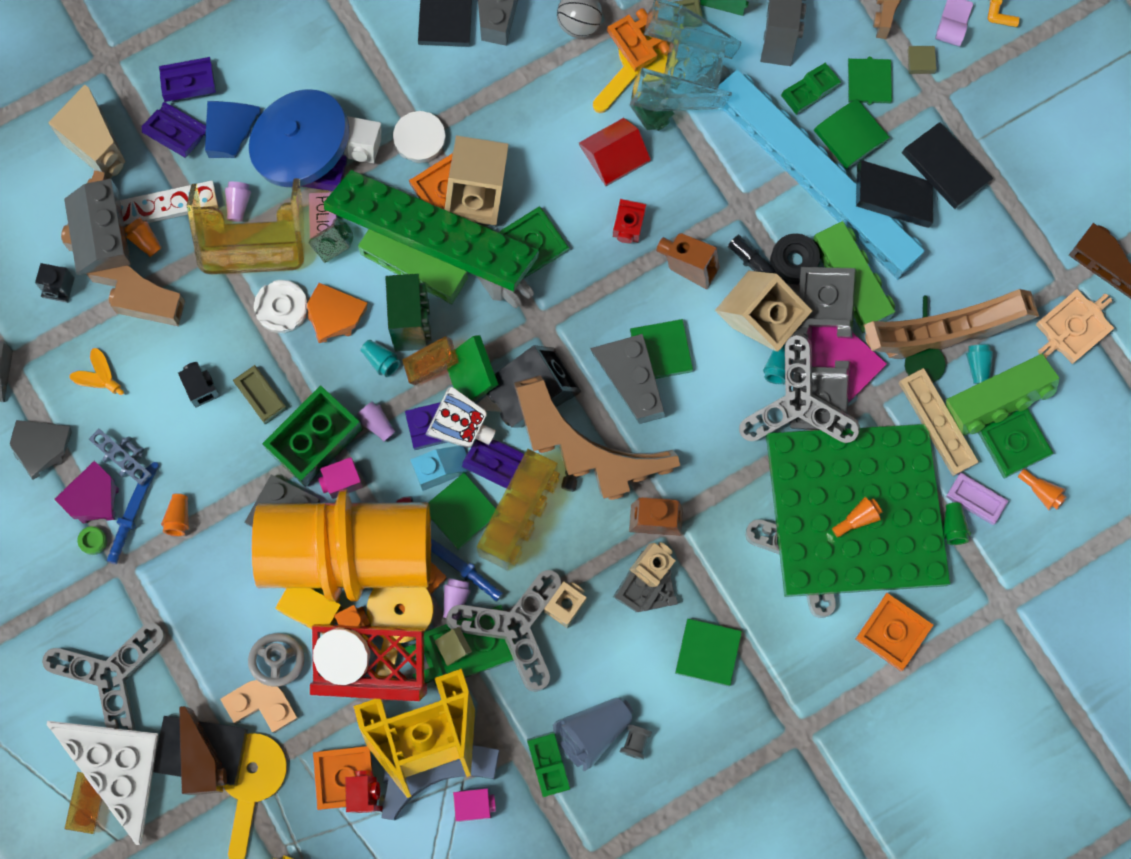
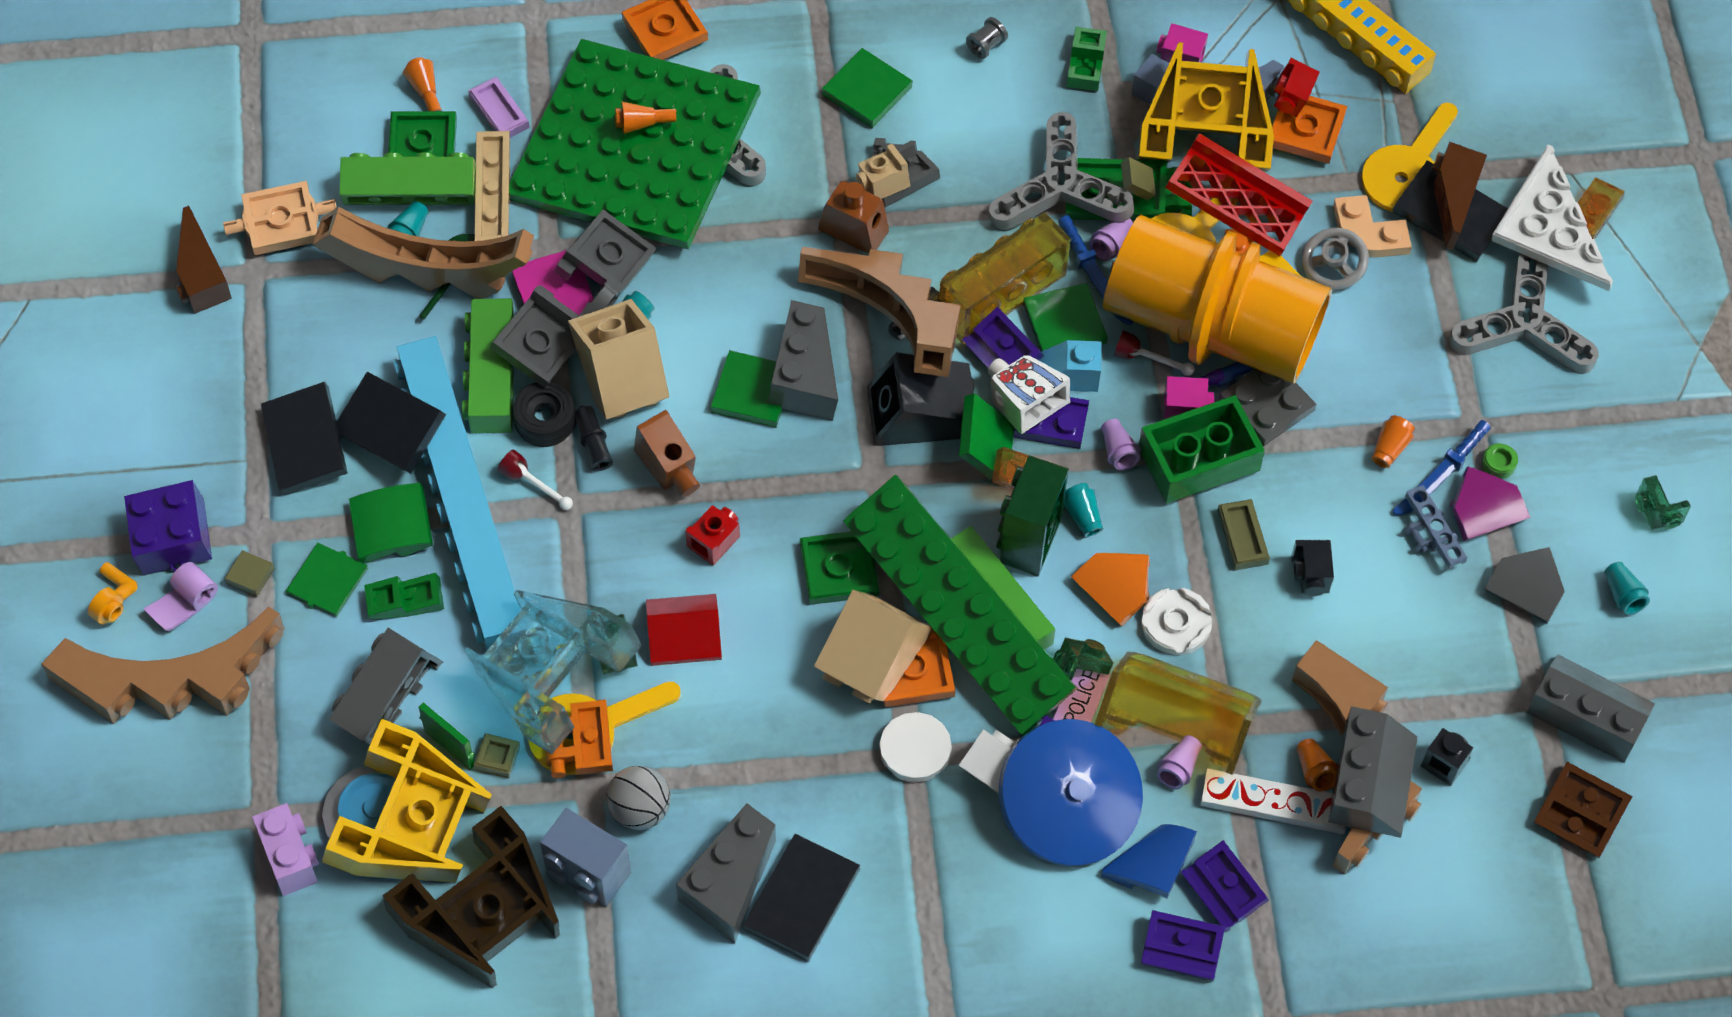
camera: 155 degrees left, 15 degrees down
(87, 133) = (1340, 908): tan slope -> none
(101, 378) = (1428, 631): light orange piece -> none
(341, 656) = (1264, 207): white tile -> none
(555, 608) = (994, 179): tan brick -> none
(593, 730) = (1024, 58): sand blue cone -> none
(790, 211) = (515, 467): none -> hinge
(807, 410) = (606, 207): light grey piece -> none
(956, 525) = (538, 89): green cone -> none
(993, 57) = (167, 527): none -> dark purple brick

